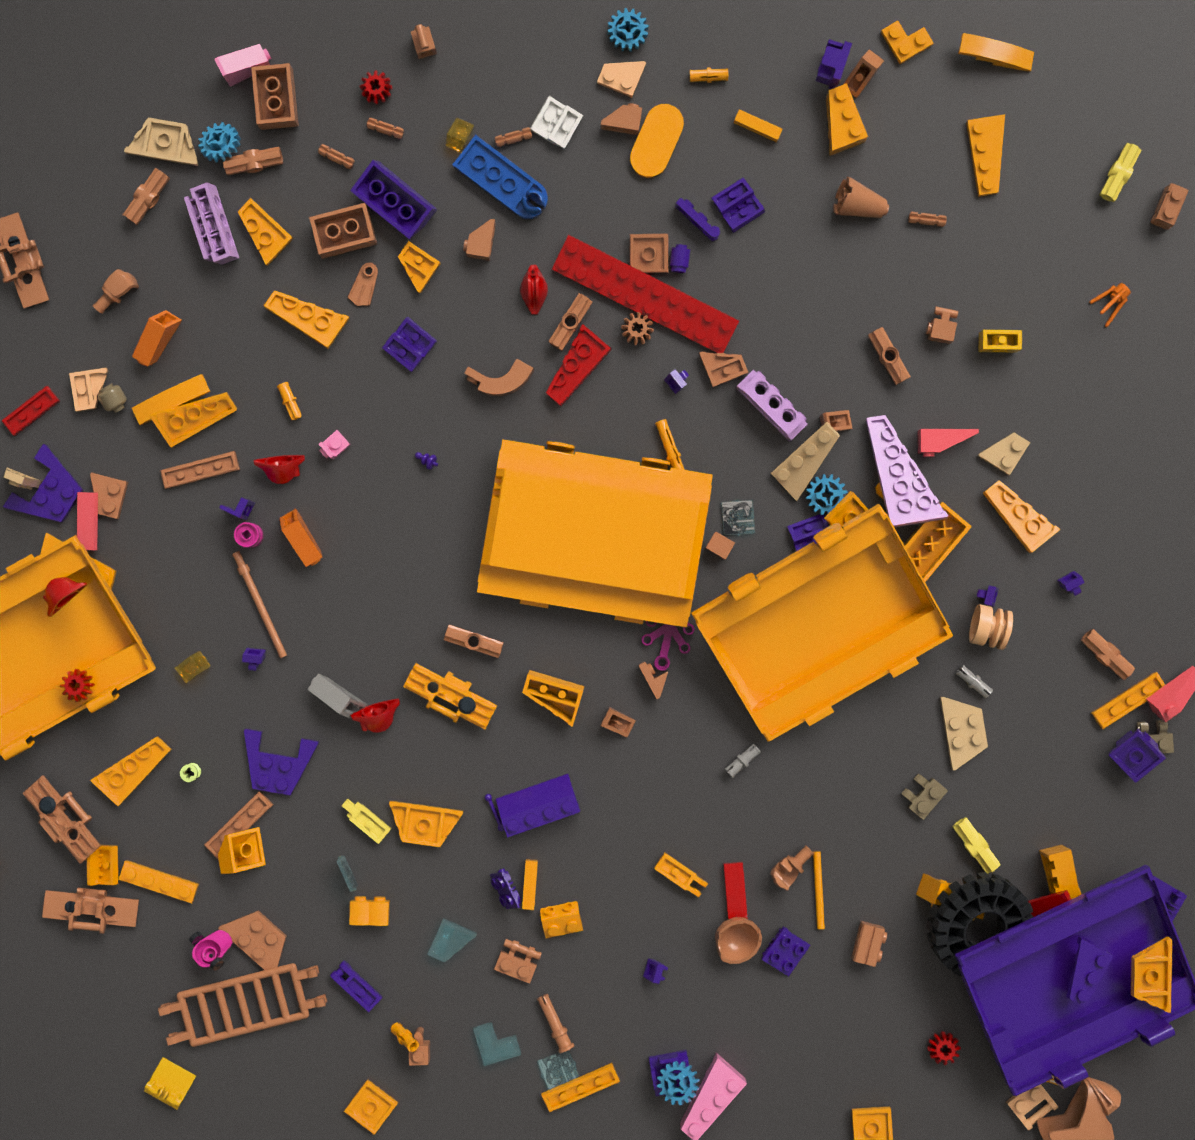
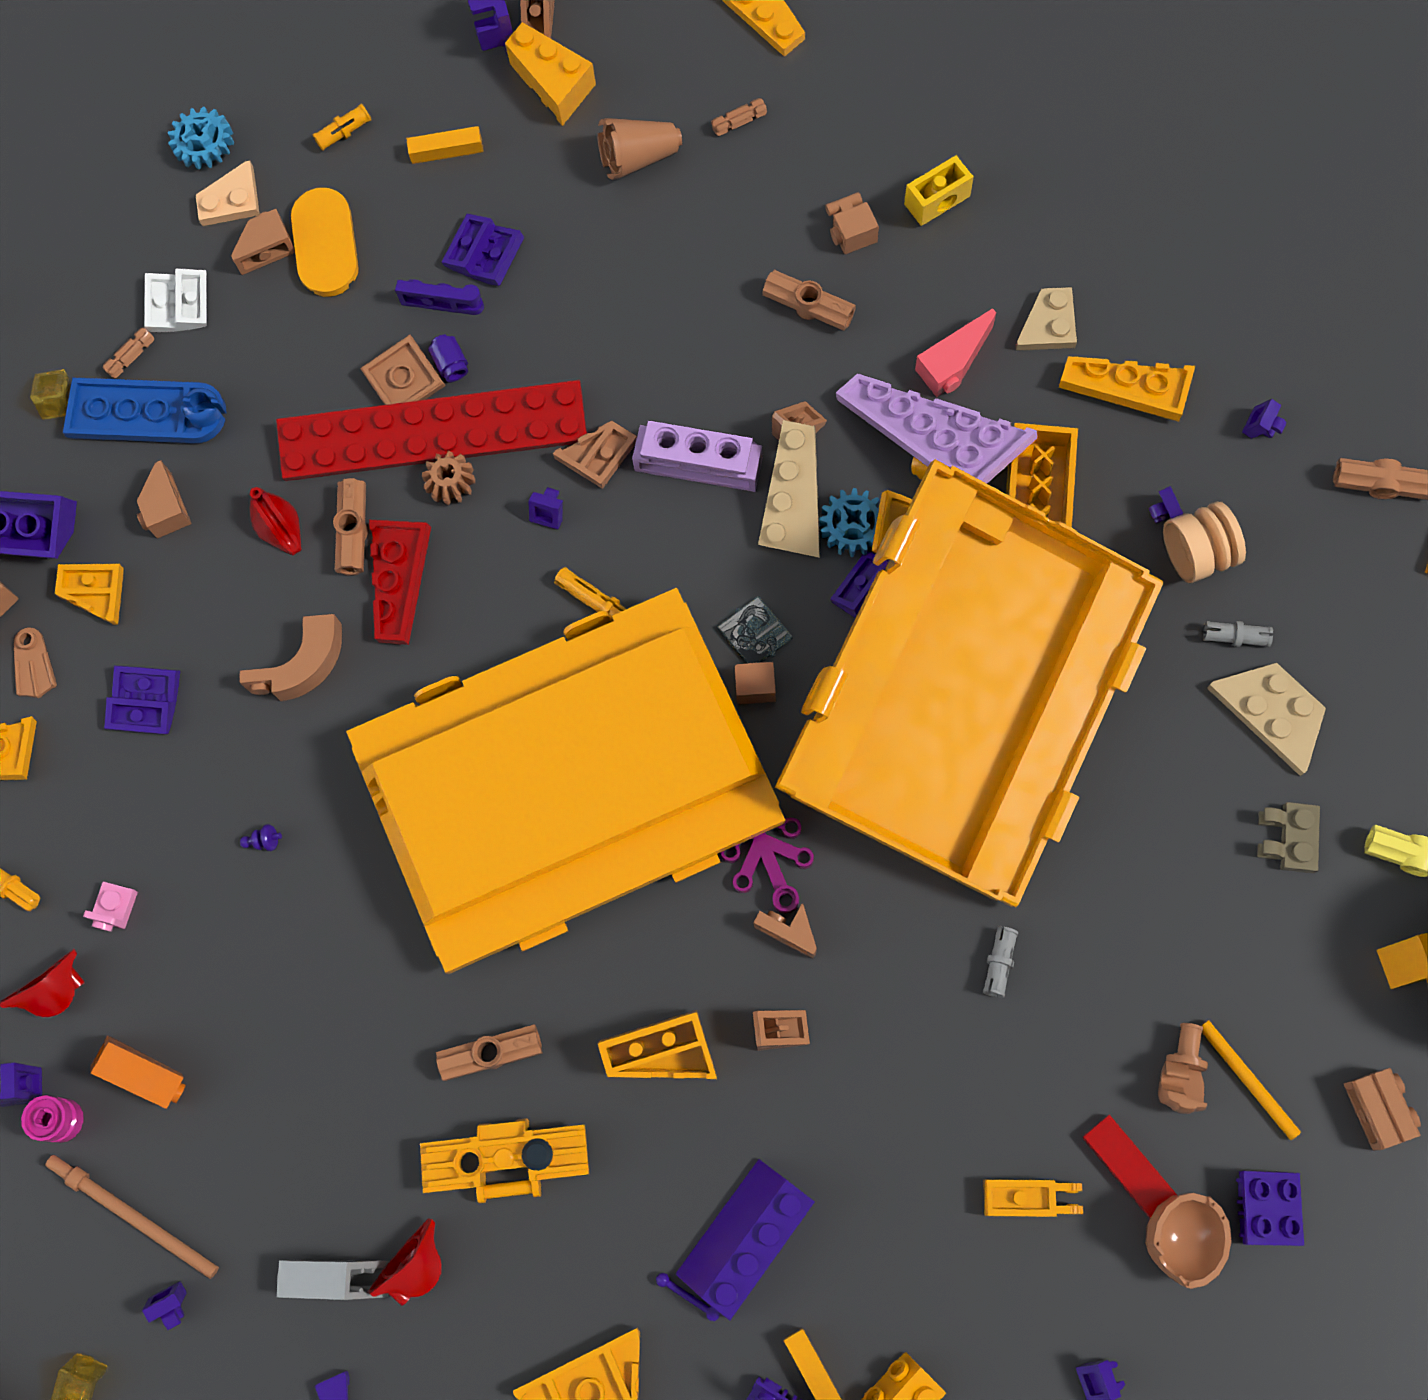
camera: 25 degrees left, 15 degrees down
(1118, 294) = (1044, 52): orange plant -> none

